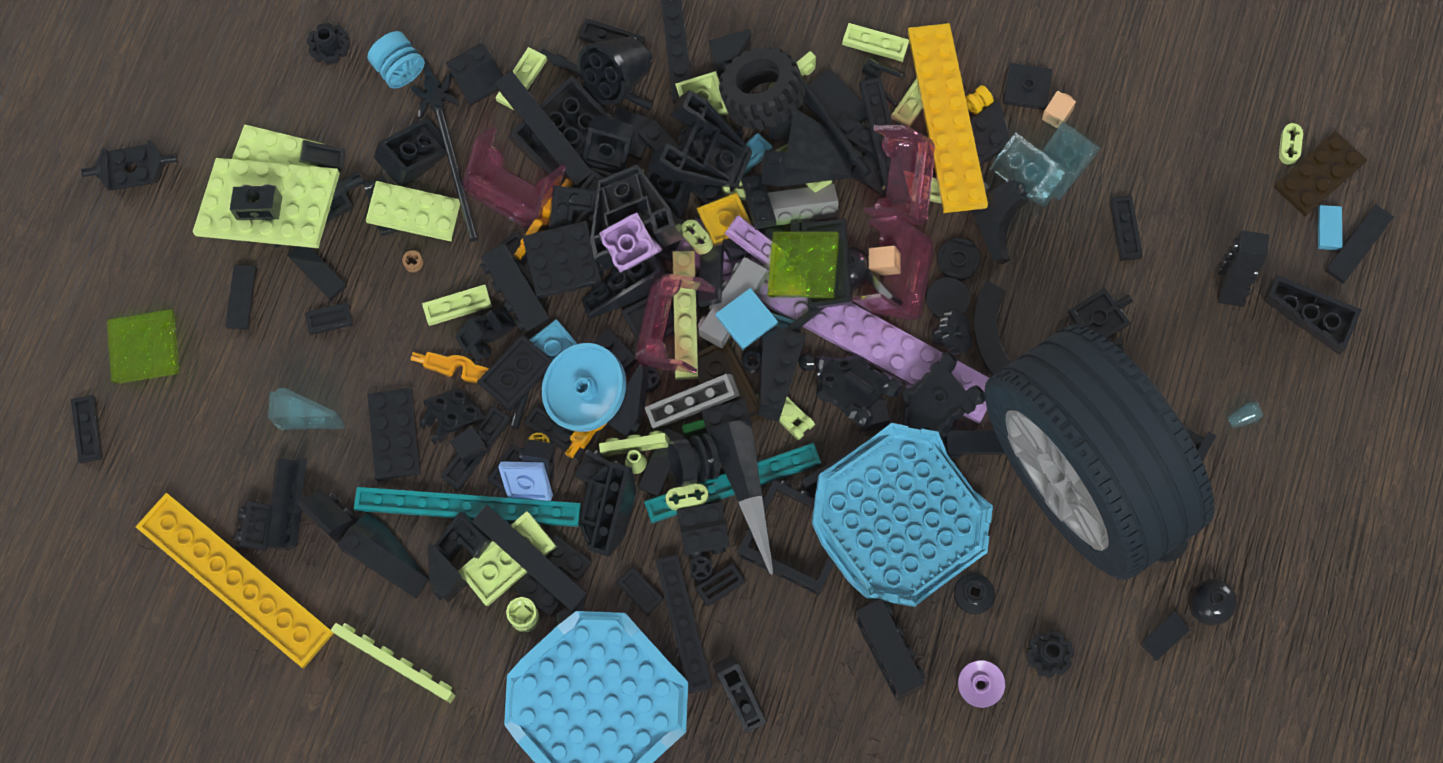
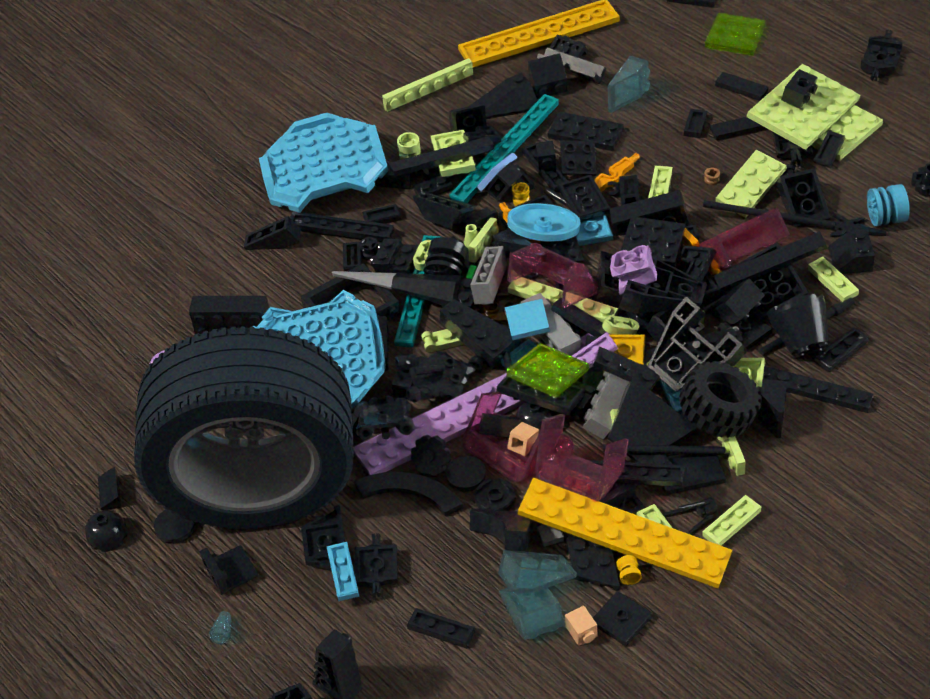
camera: 120 degrees right, 25 degrees down
(1135, 331) = (342, 571): none -> medium azure tile

